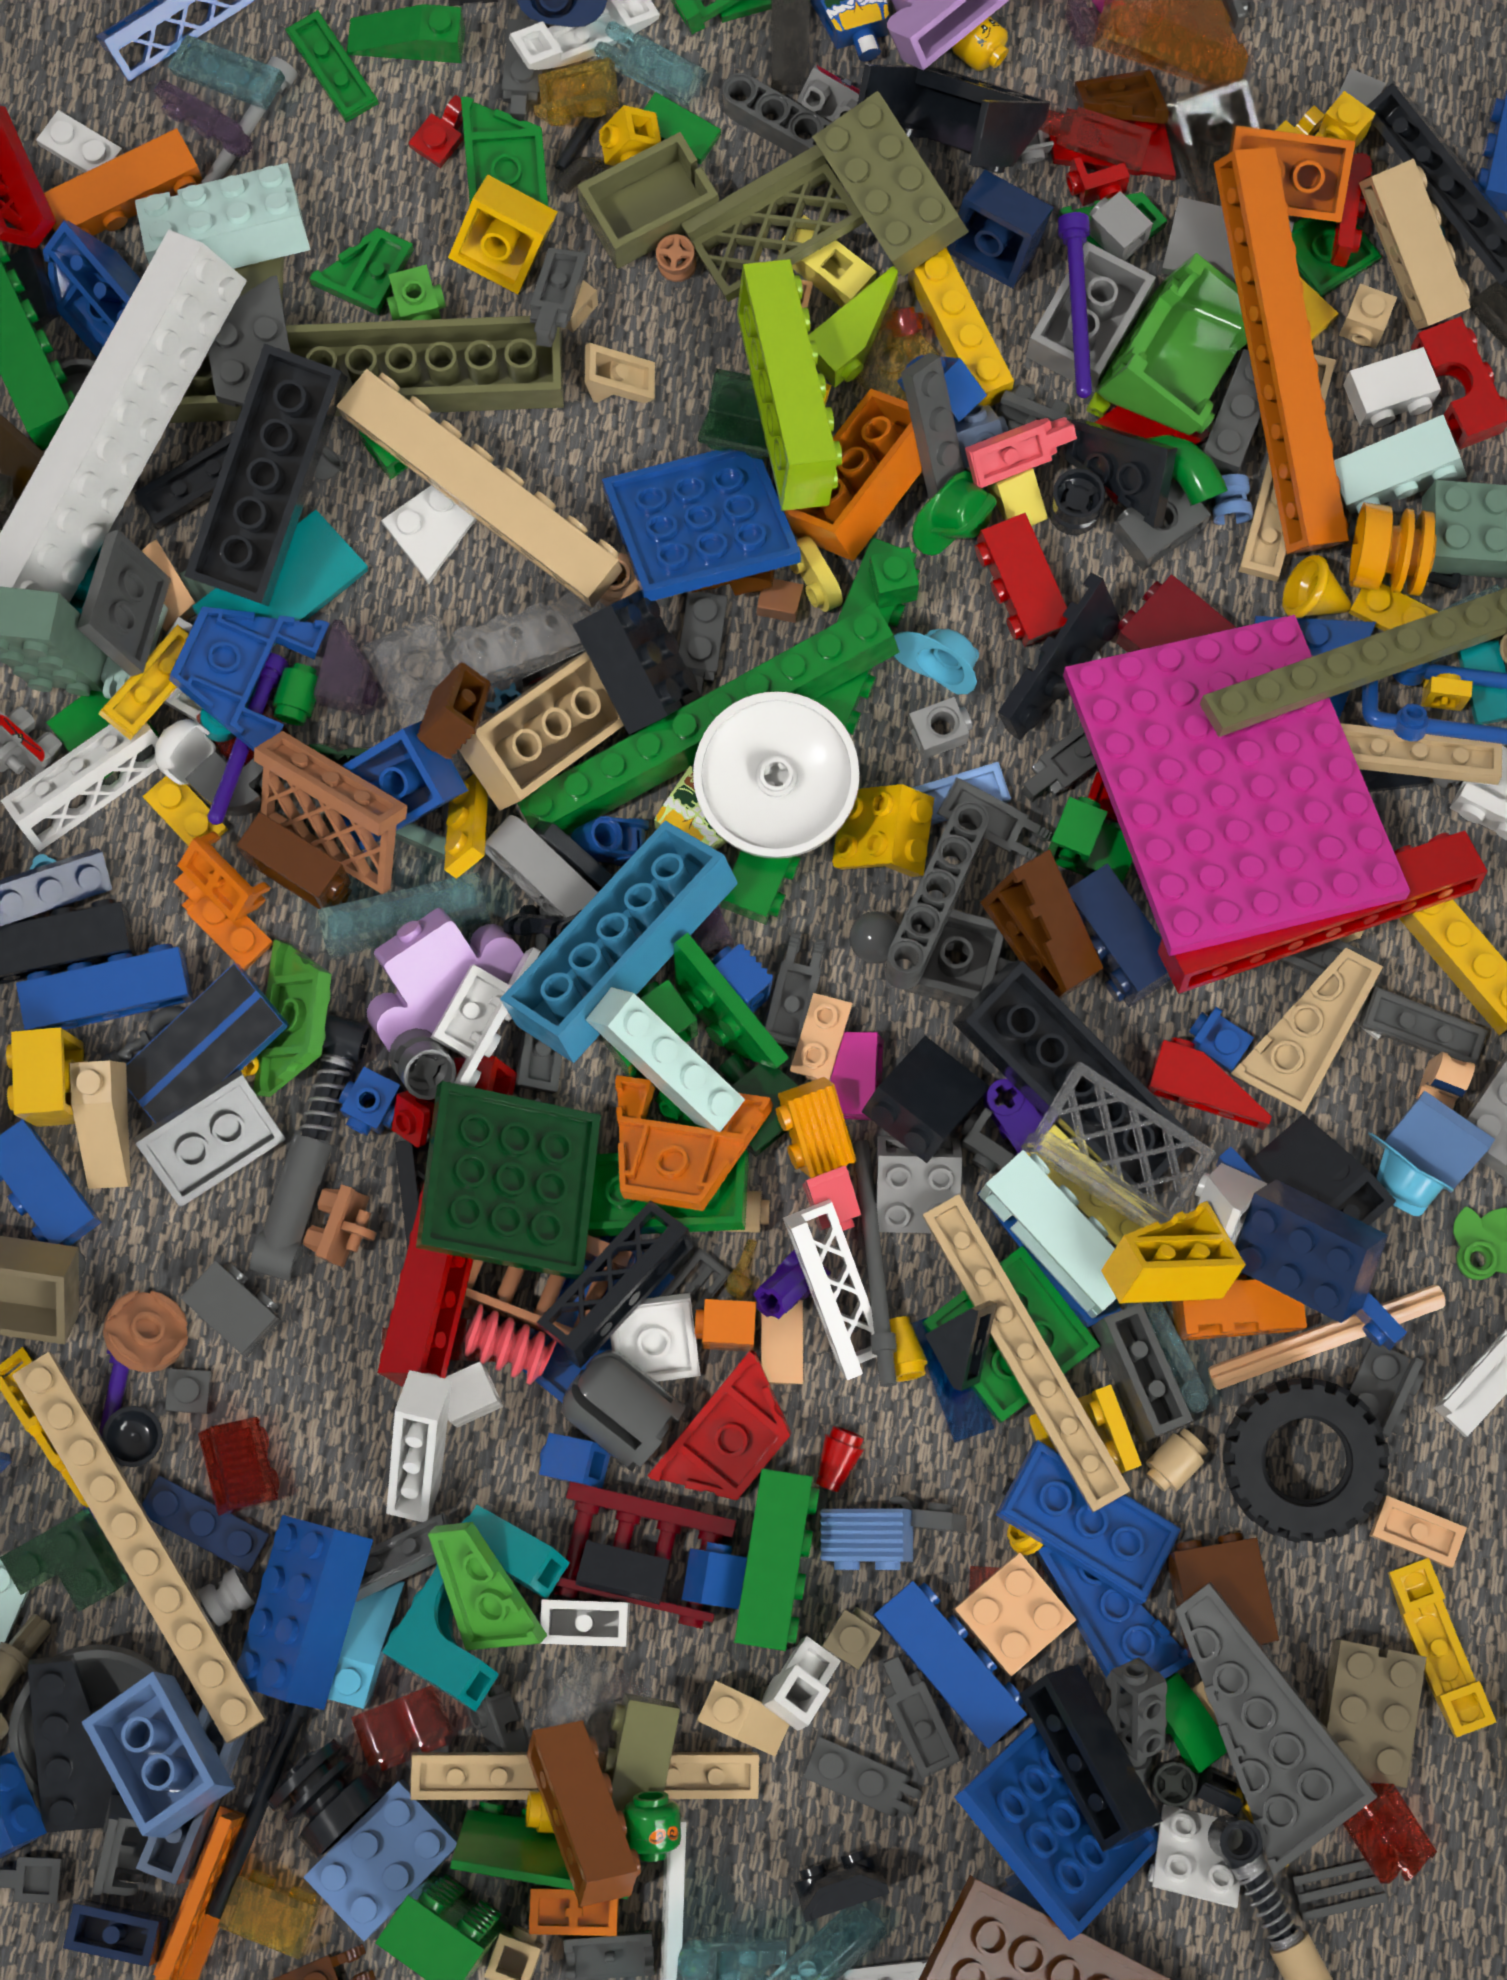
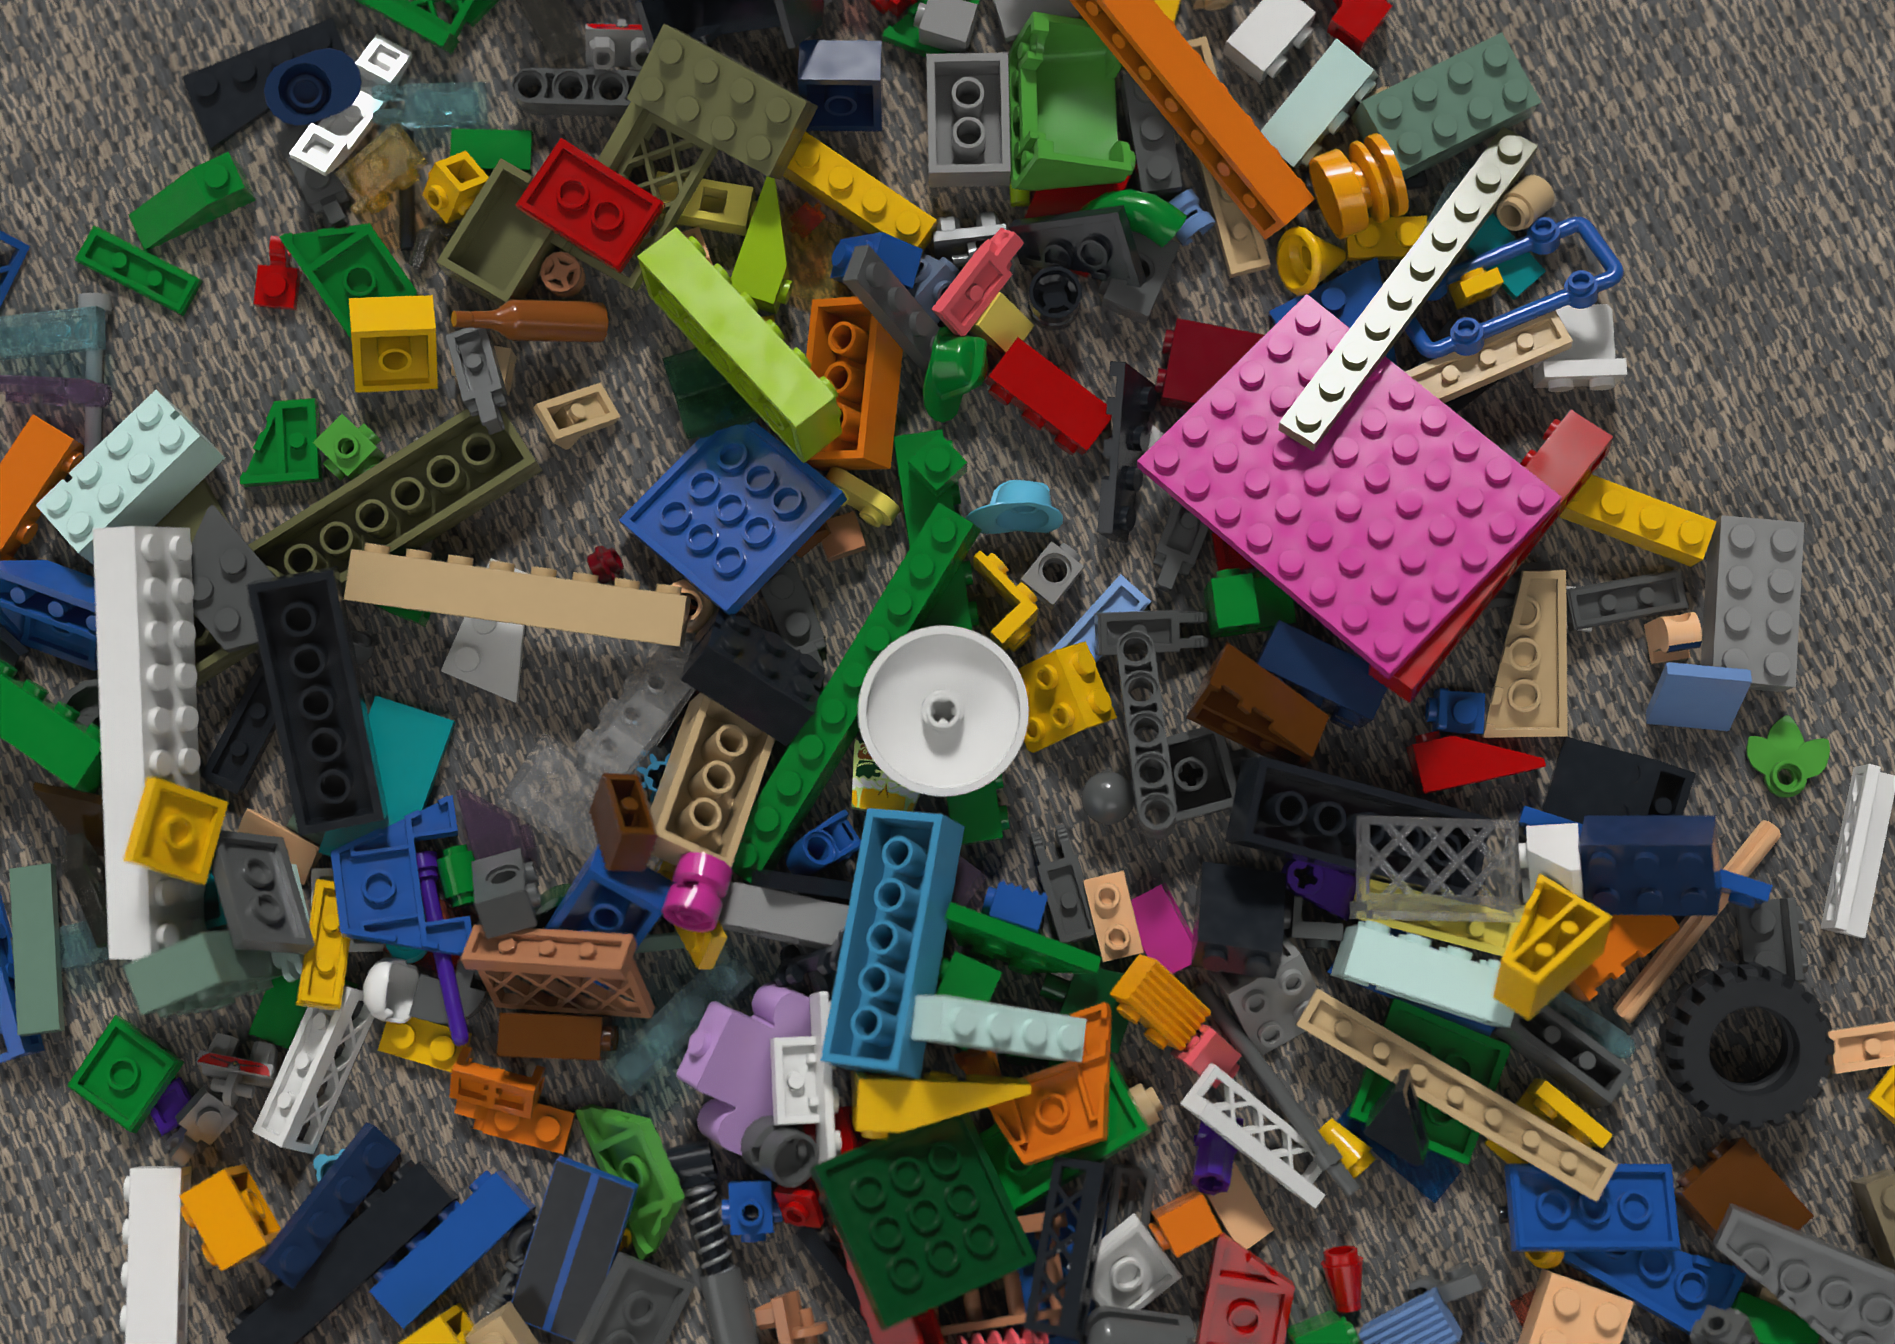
camera: 30 degrees left, 5 degrees up
(87, 508) = (175, 831): none -> yellow plate
(324, 719) = (505, 893): none -> dark grey brick
(481, 802) = (697, 892): none -> dark pink wheel
(551, 1077) = (902, 1103): none -> yellow wedge
(570, 505) = (605, 564): none -> dark red plate
(634, 280) = (541, 320): none -> dark orange piece
(731, 208) = (590, 205): none -> red tile
(737, 1282) = (1167, 1175): clear yellow hand -> none
(887, 745) = (1016, 626): none -> yellow bracket
(1074, 230) = (911, 52): dark purple piece -> none
(1176, 1460) = (1634, 1108): tan brick -> none
(1405, 1182) = (1690, 749): medium azure piece -> none

